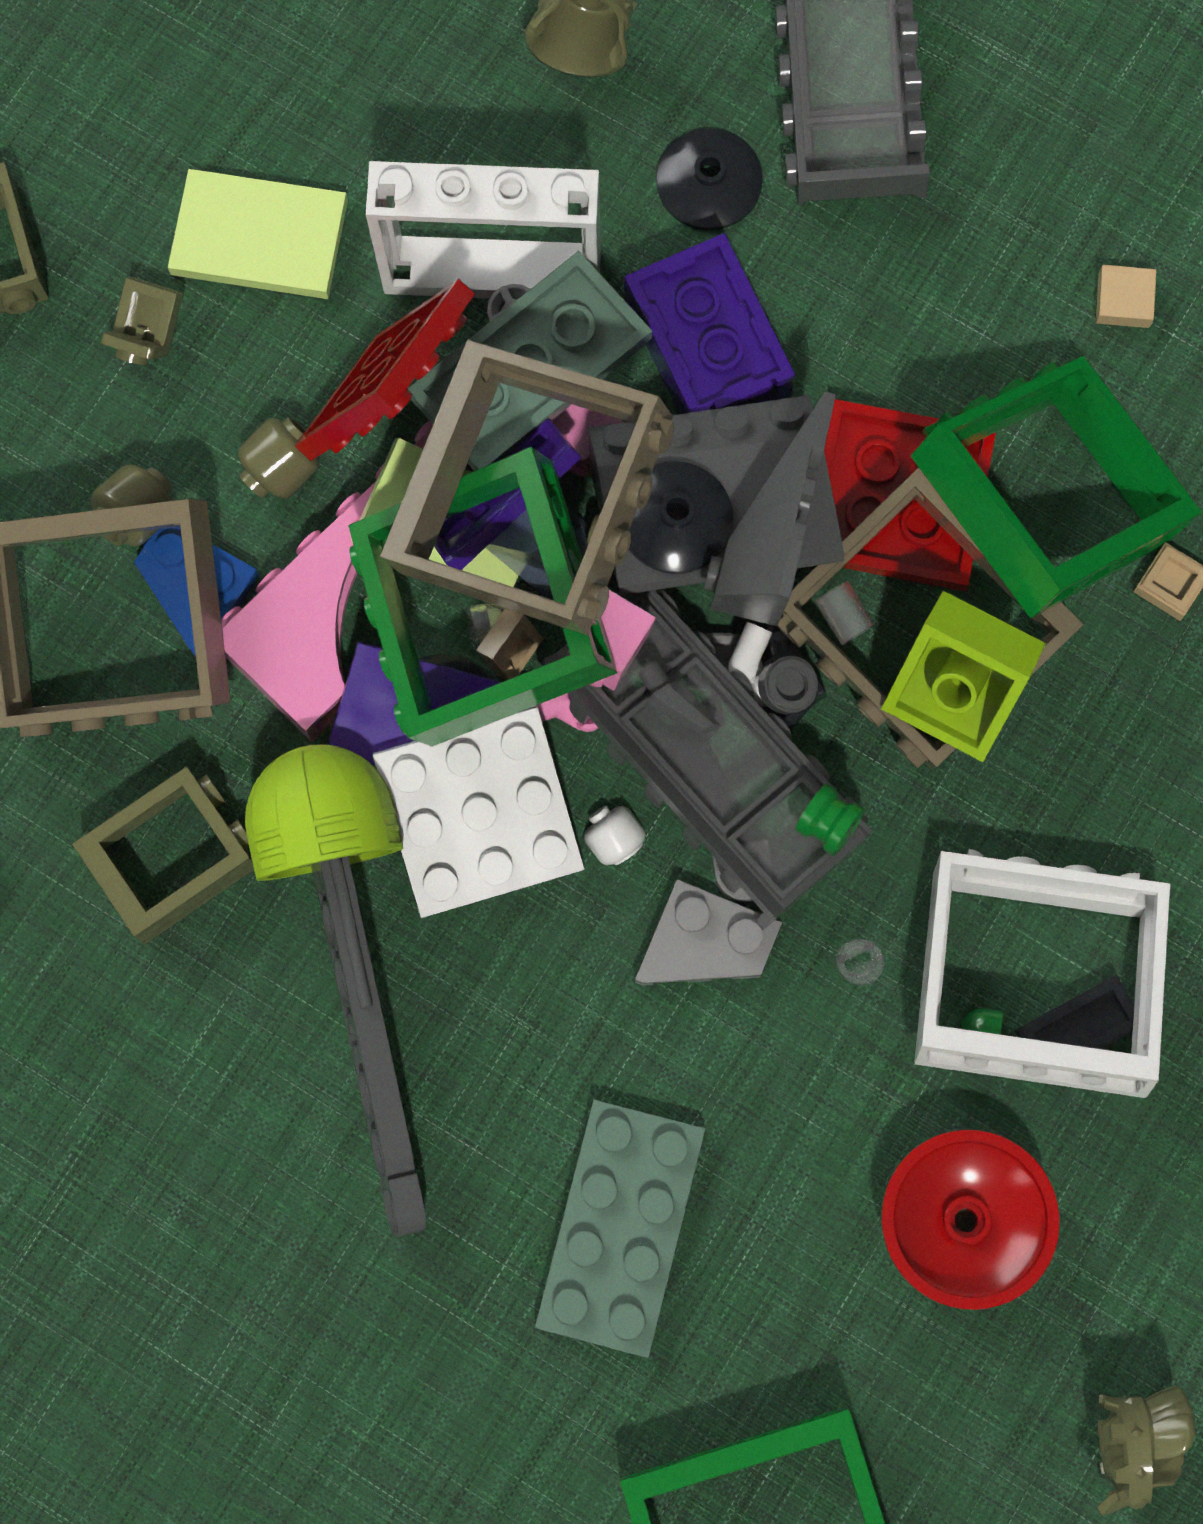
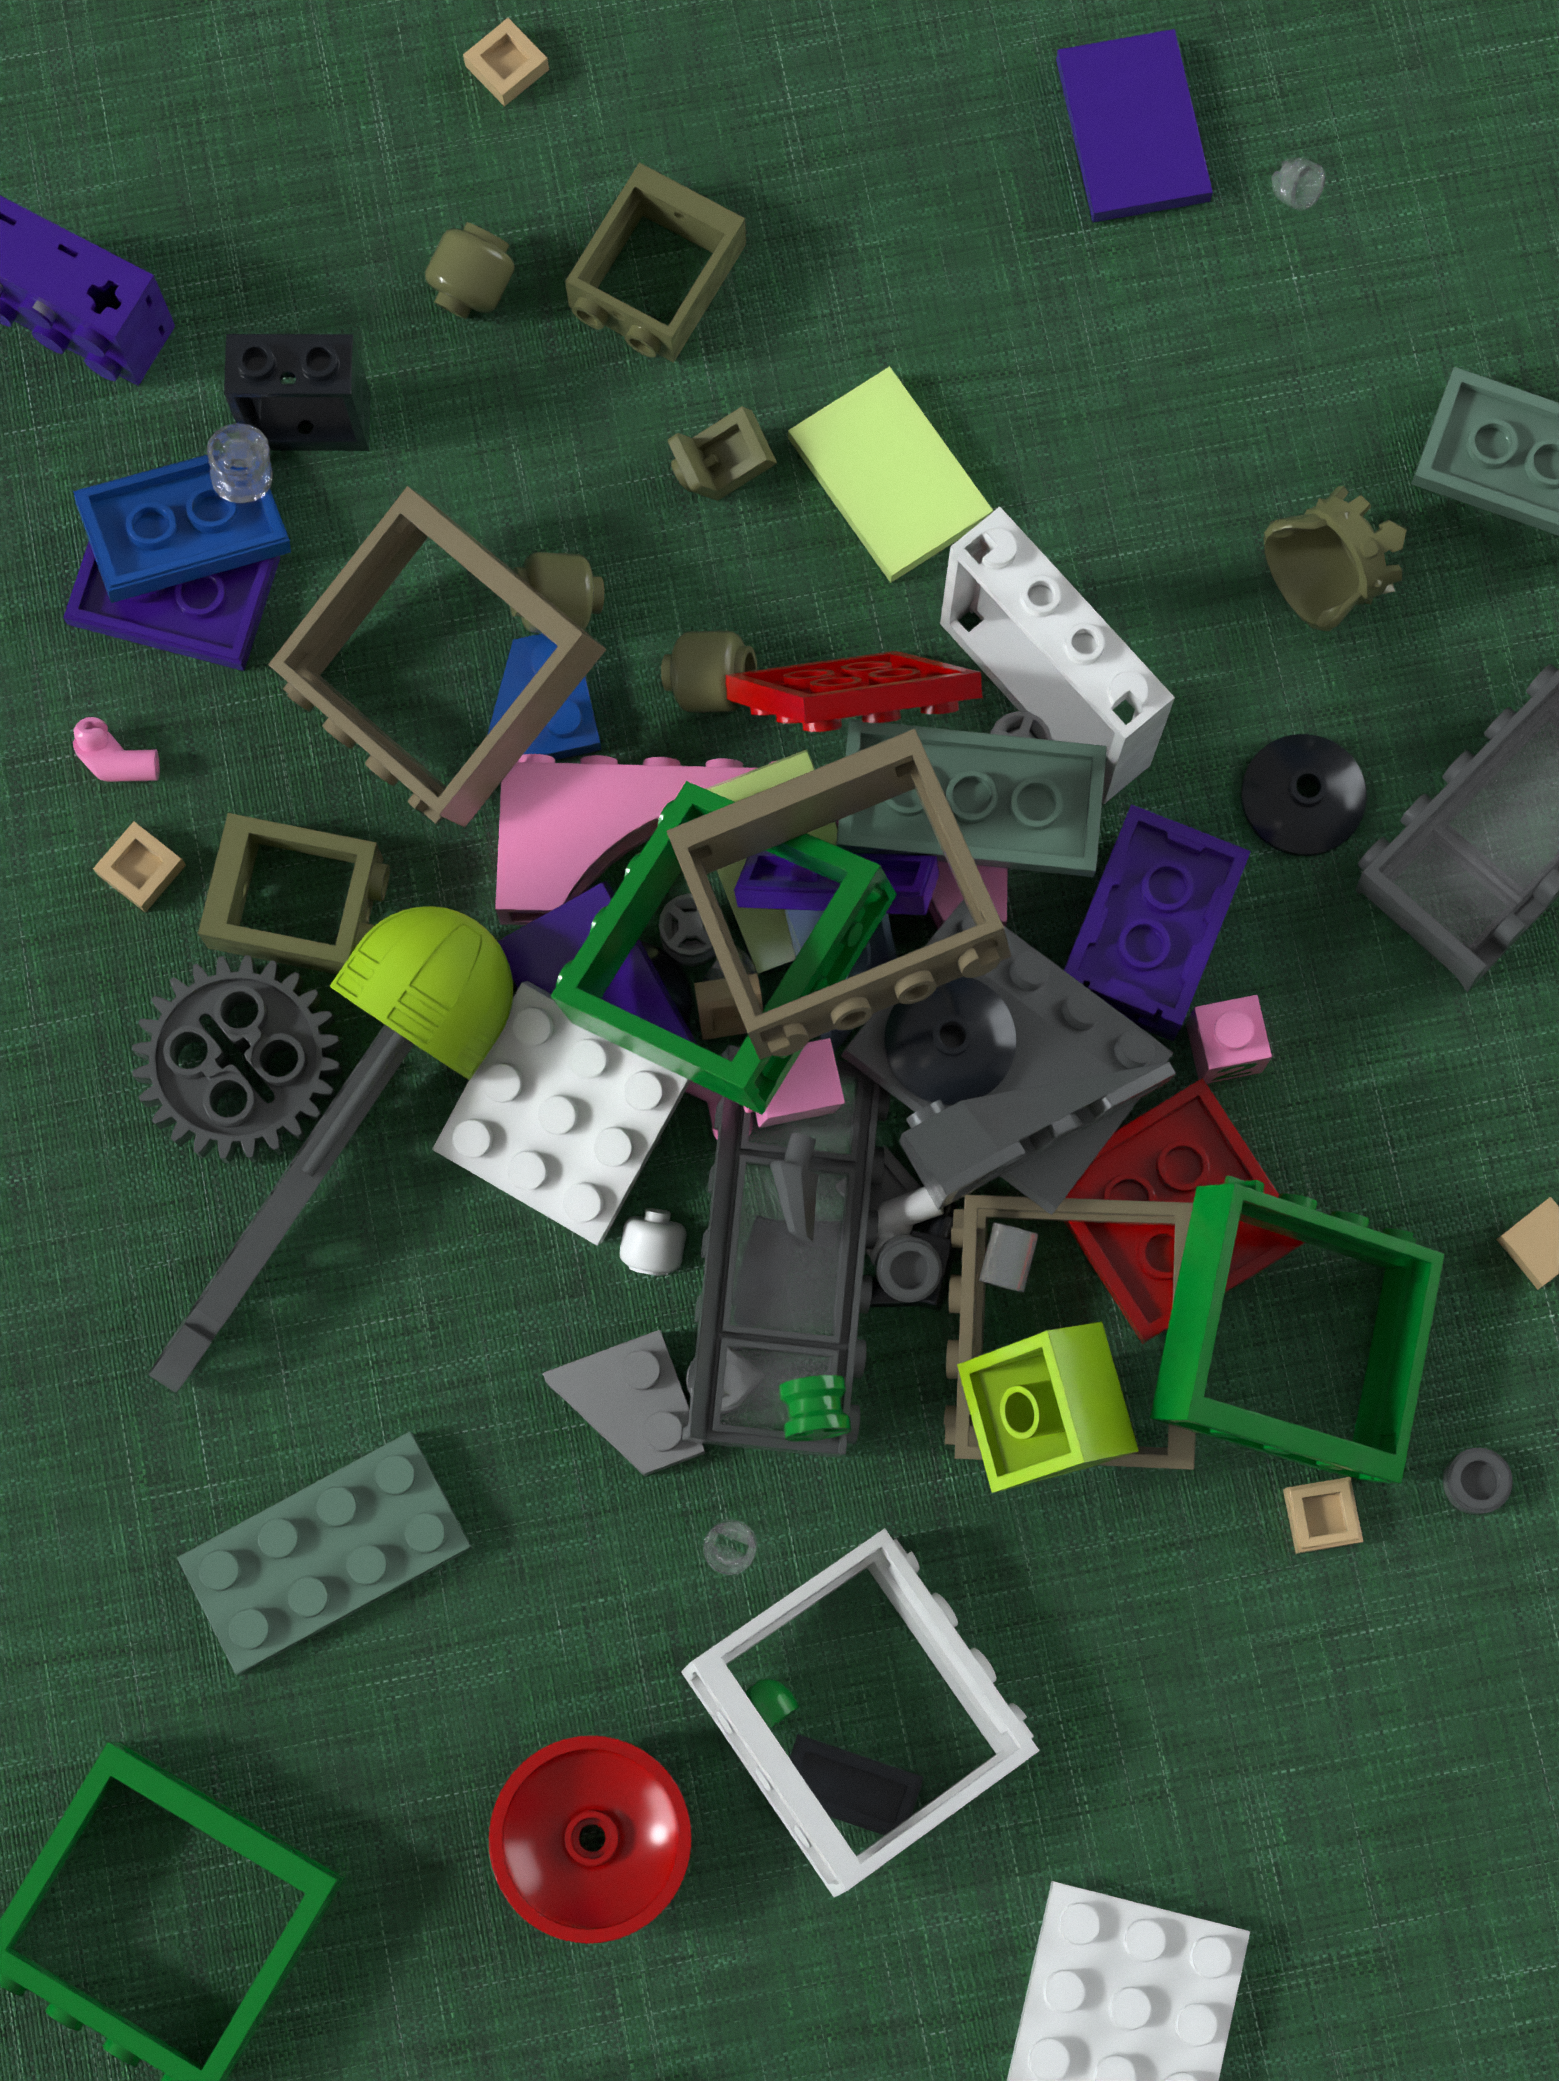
camera: 45 degrees right, 0 degrees up
(46, 939) = (139, 866): none -> tan tile
(234, 1040) = (194, 1093): none -> dark grey gear
(433, 612) = (681, 921): none -> light grey wheel
(826, 358) = (1228, 1039): none -> bright pink brick

